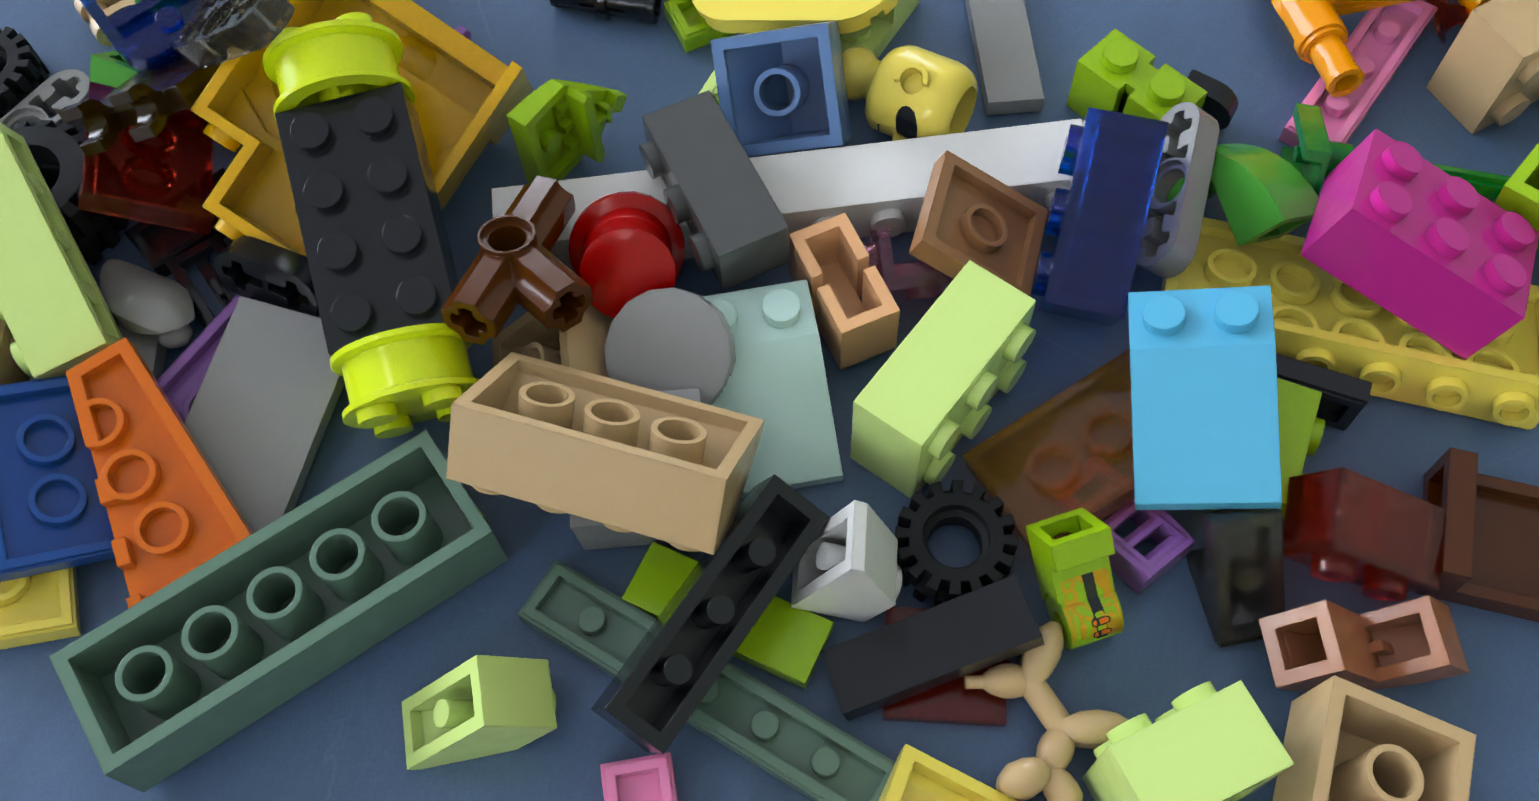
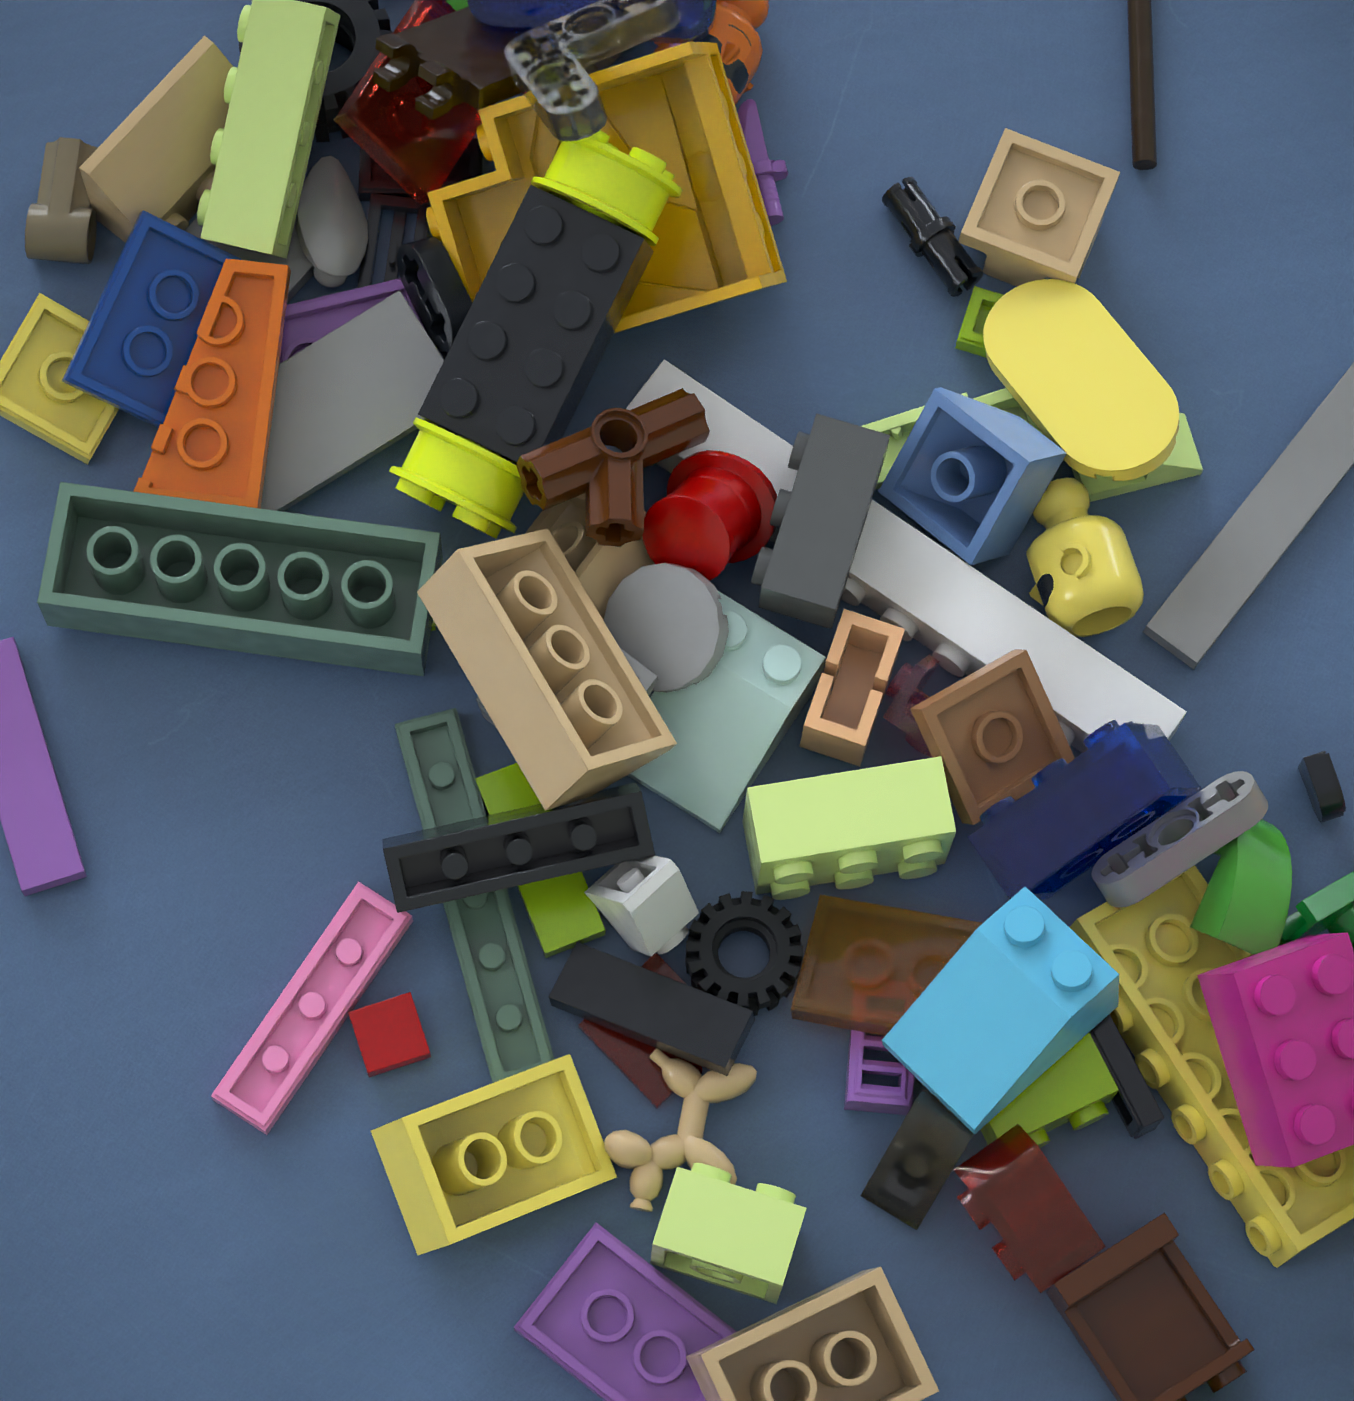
camera: 35 degrees right, 10 degrees up
(479, 711) = (309, 772): yellowish green slope -> none
(561, 125) = (767, 348): lime slope -> none
(1077, 576) = (797, 1052): lime leg -> none
(1125, 71) = (1271, 746): lime piece -> none
(1371, 649) = (948, 1283): nougat brick -> none

